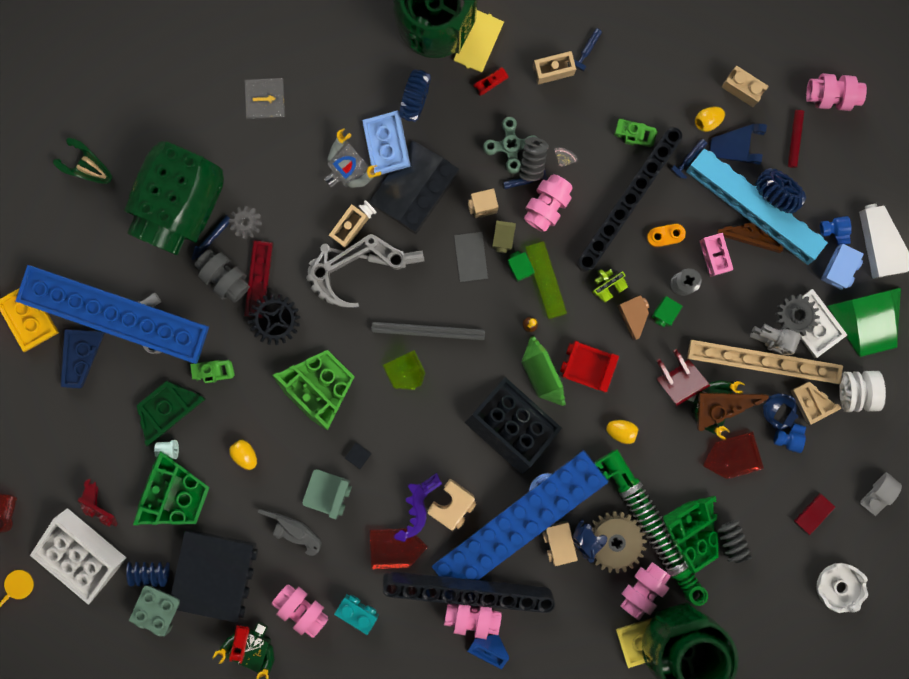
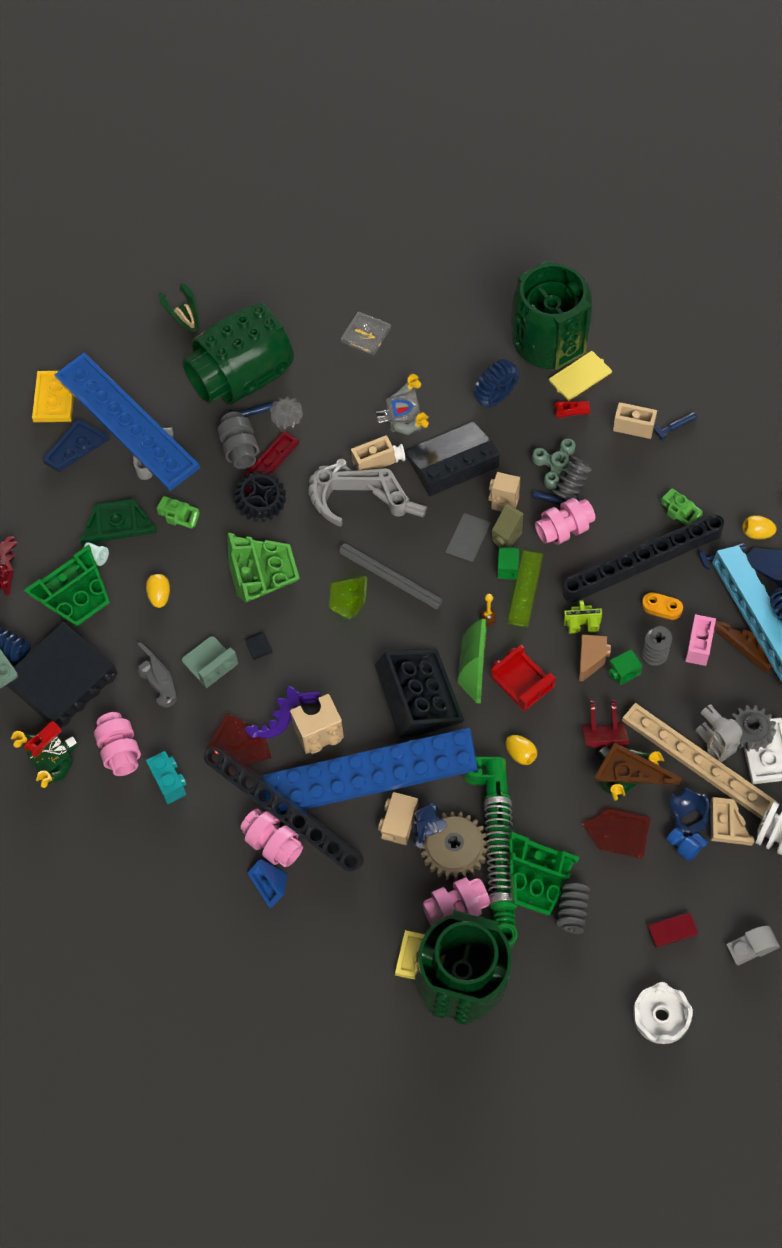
camera: 35 degrees right, 25 degrees down
(386, 142) = (448, 411): light blue tile -> none
(565, 156) = (604, 498): clear tile -> none

